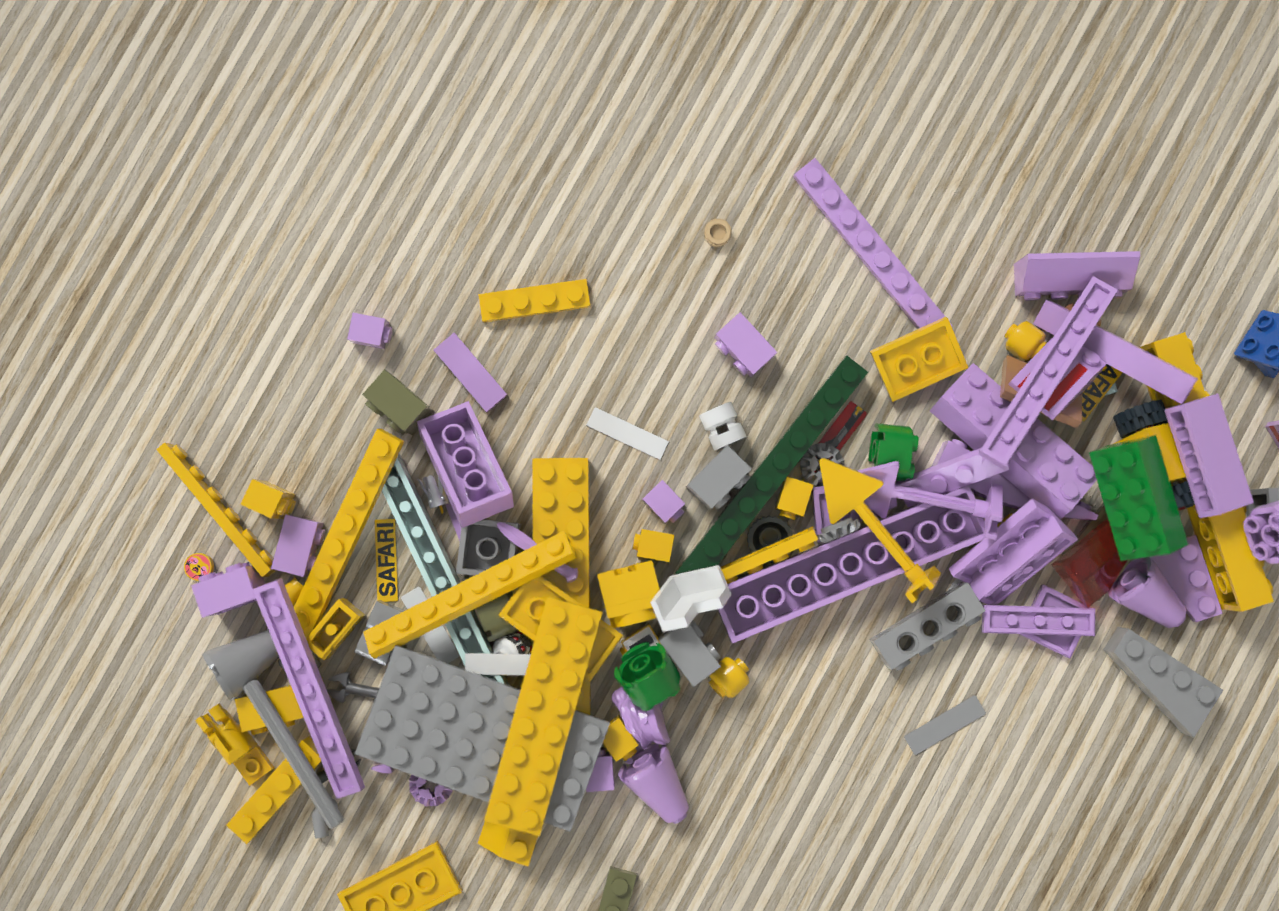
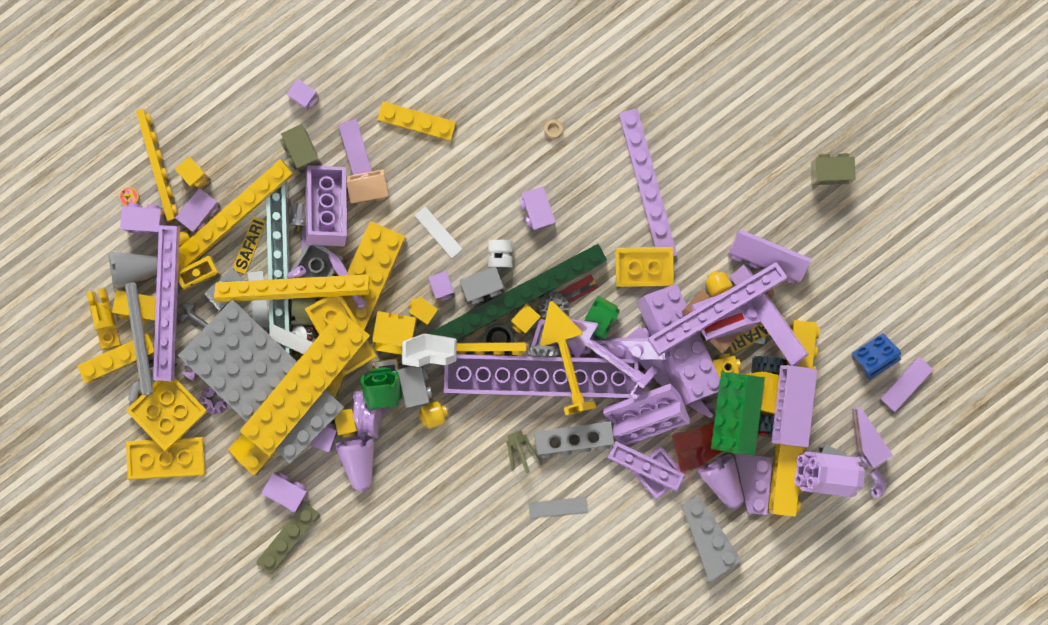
camera: 30 degrees right, 0 degrees up
(375, 832) = (167, 412): none -> yellow plate
(466, 571) = (296, 273): none -> lavender arm
(508, 415) = (367, 187): none -> light nougat brick
(578, 866) = (284, 491): none -> lavender brick
(854, 662) = (517, 441): none -> olive plant
(1086, 439) = (734, 364): none -> yellow brick
(1108, 125) = (833, 170): none -> olive brick

